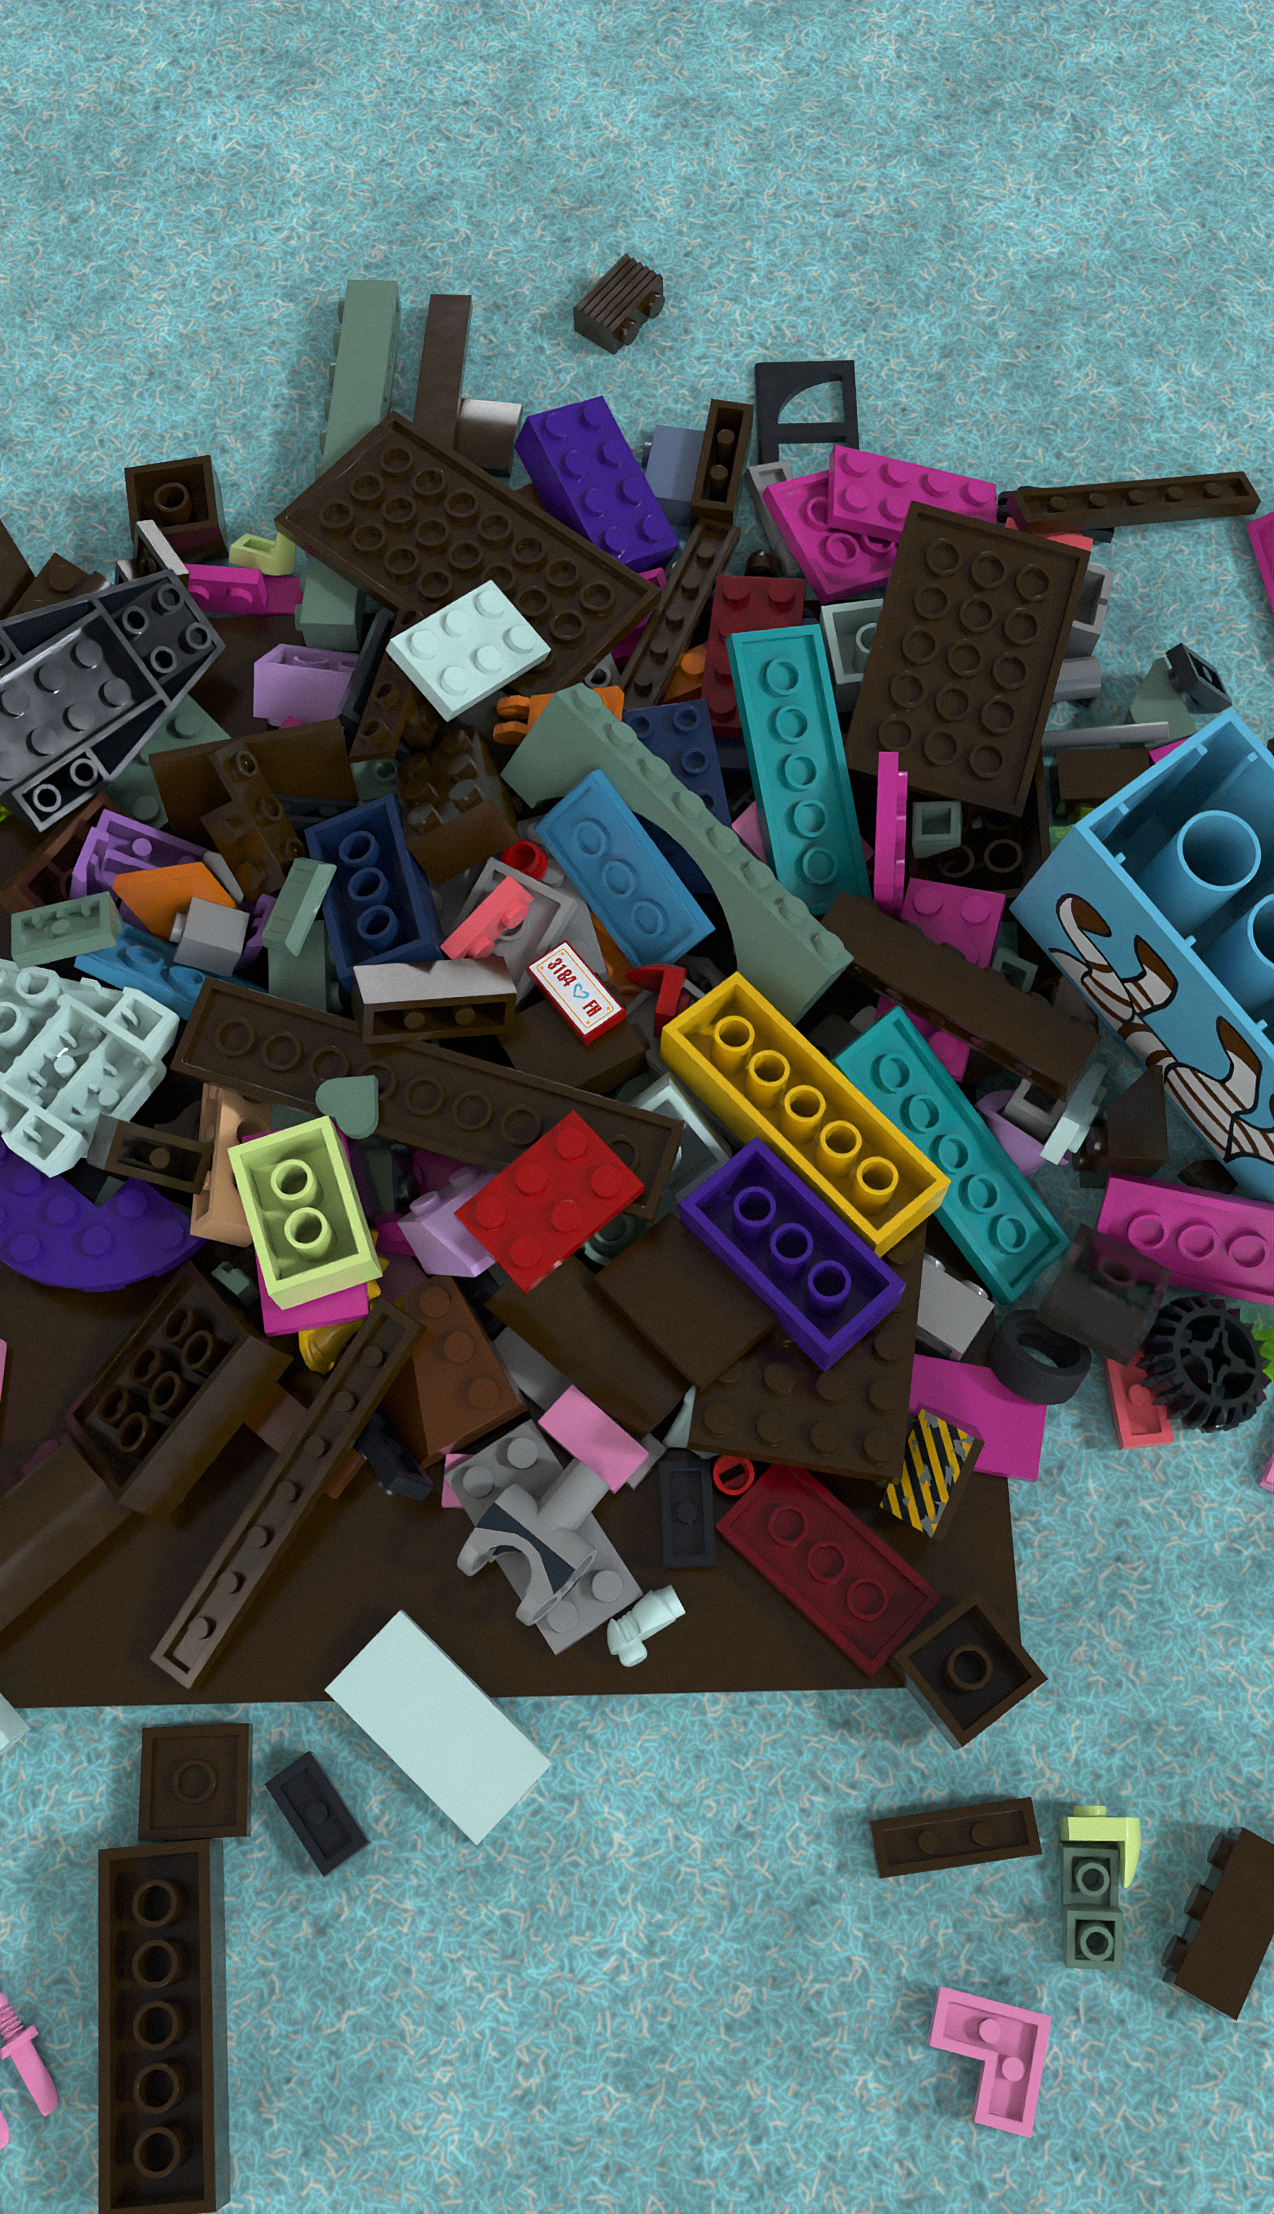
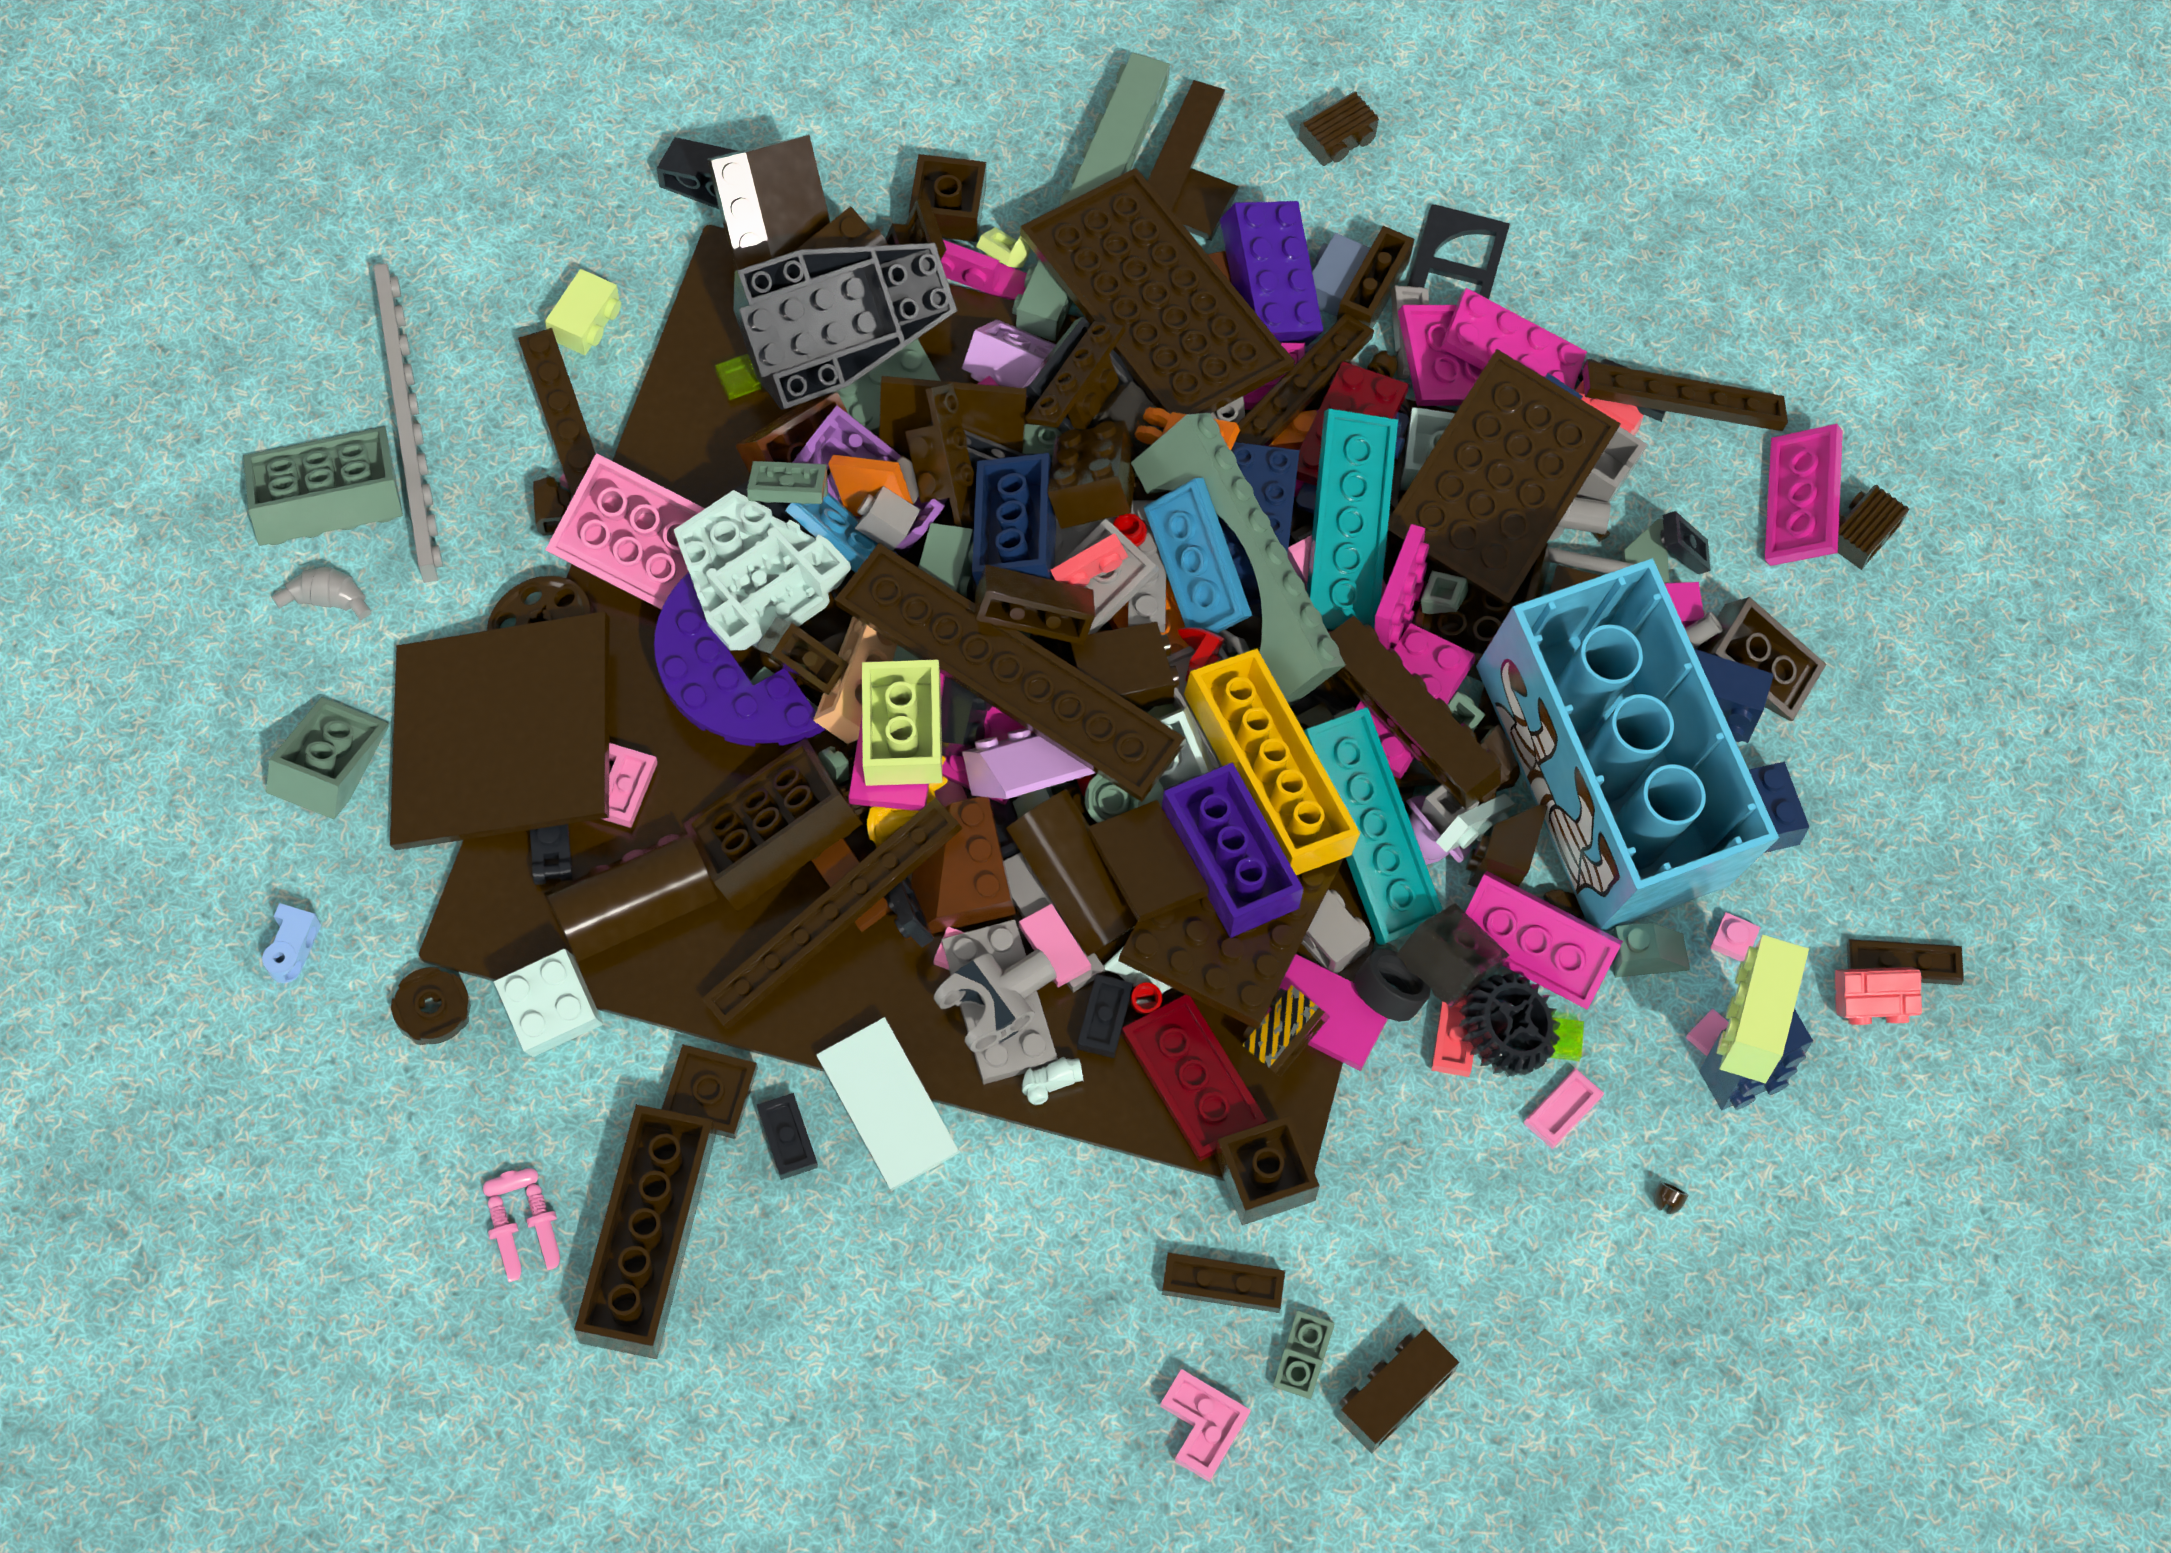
camera: 10 degrees right, 5 degrees down
(297, 905) = (957, 513): sand green tile -> none
(351, 1104) = (955, 658): sand green tile -> none
(468, 650) = (1136, 365): light aqua plate -> none
(549, 1202) = (1073, 763): red plate -> none
(576, 992) = (1137, 630): tile -> none
(1092, 1824) = (1325, 1304): yellowish green plate -> none

